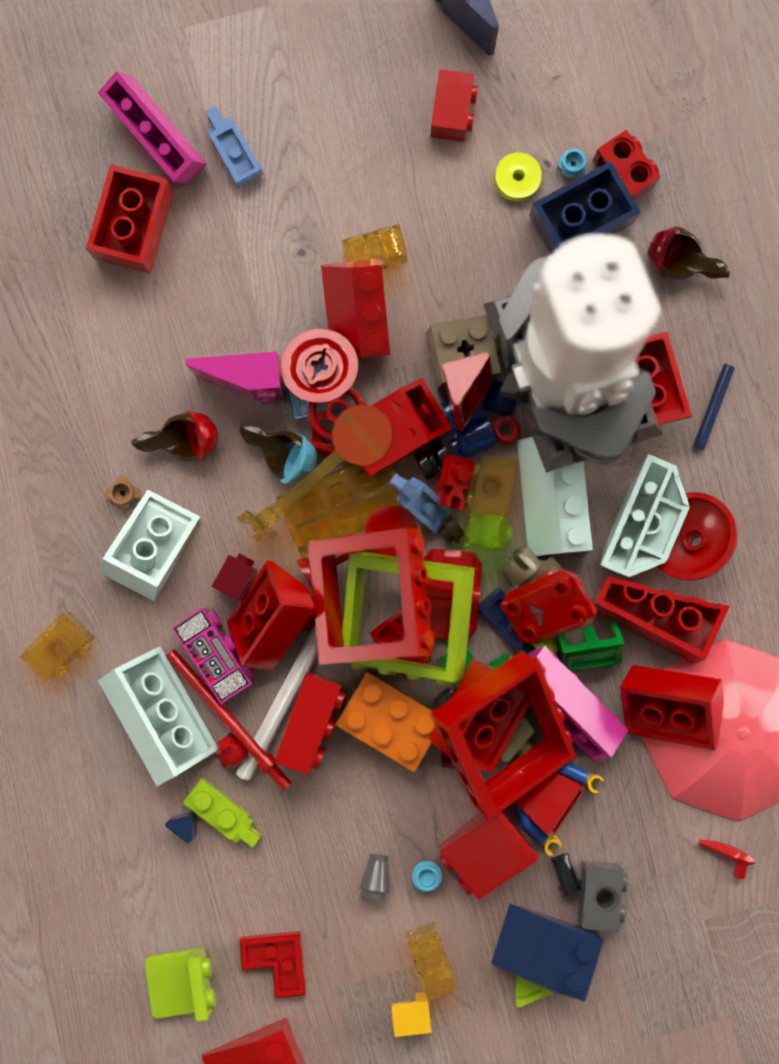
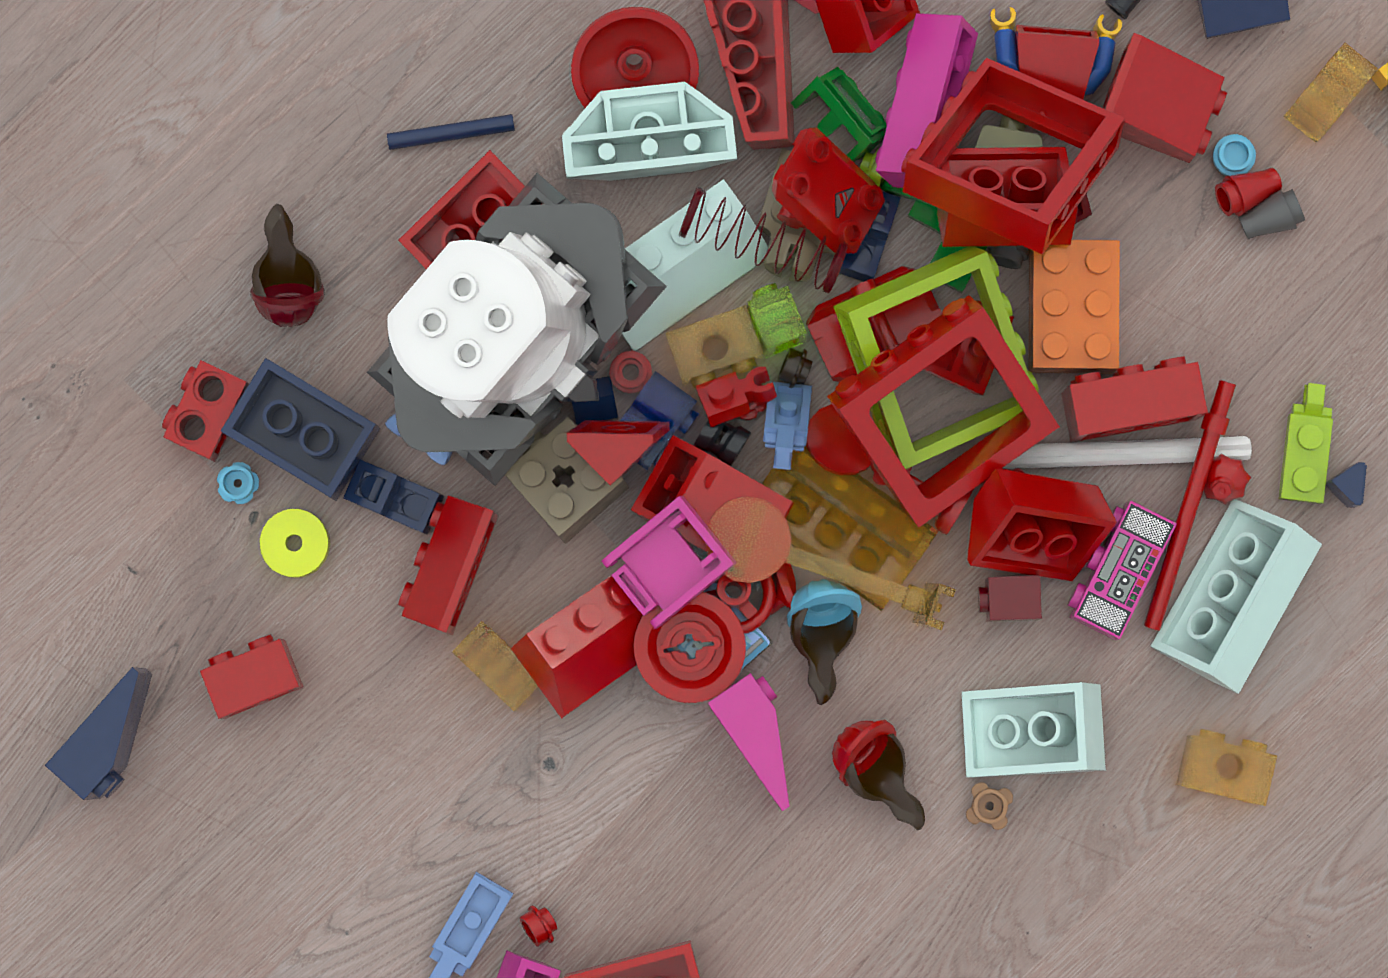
camera: 120 degrees left, 0 degrees up
(210, 190) = (538, 925): none -> red plate
(376, 375) = (663, 566): none -> dark pink container
(400, 871) = (1244, 191): none -> red cone
(451, 254) = (448, 564): none -> red slope
(512, 249) = (392, 496): none -> dark blue slope
(582, 512) = (833, 271): none -> dark red piece

